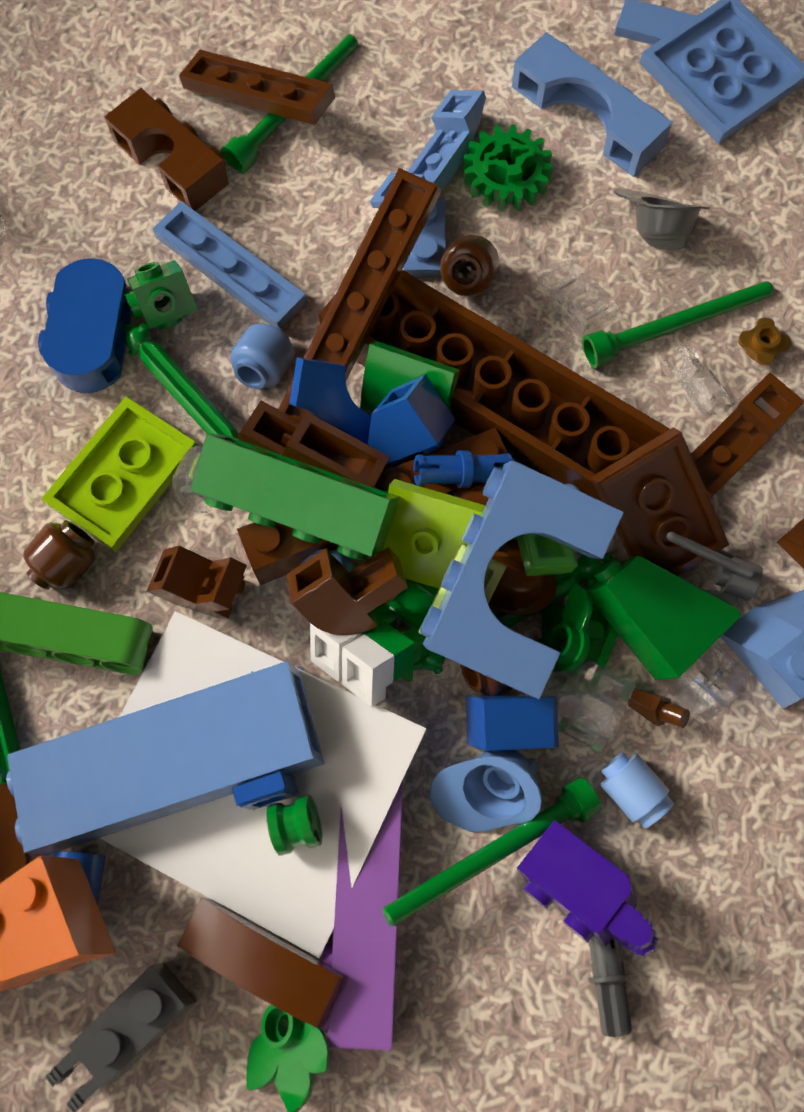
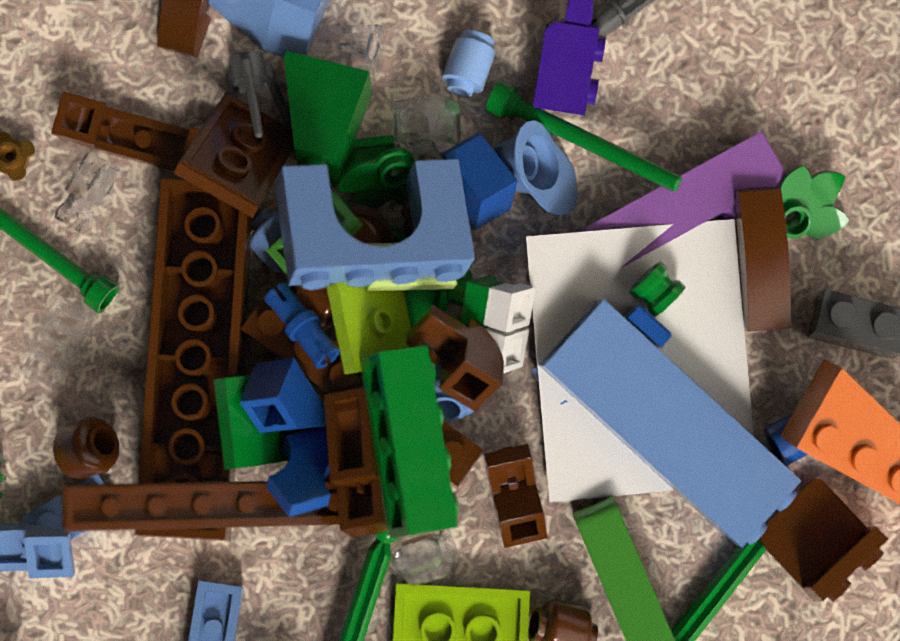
camera: 125 degrees left, 10 degrees up
(262, 356) = (281, 579): medium blue head -> none
(658, 708) = (394, 81): reddish brown bar -> none

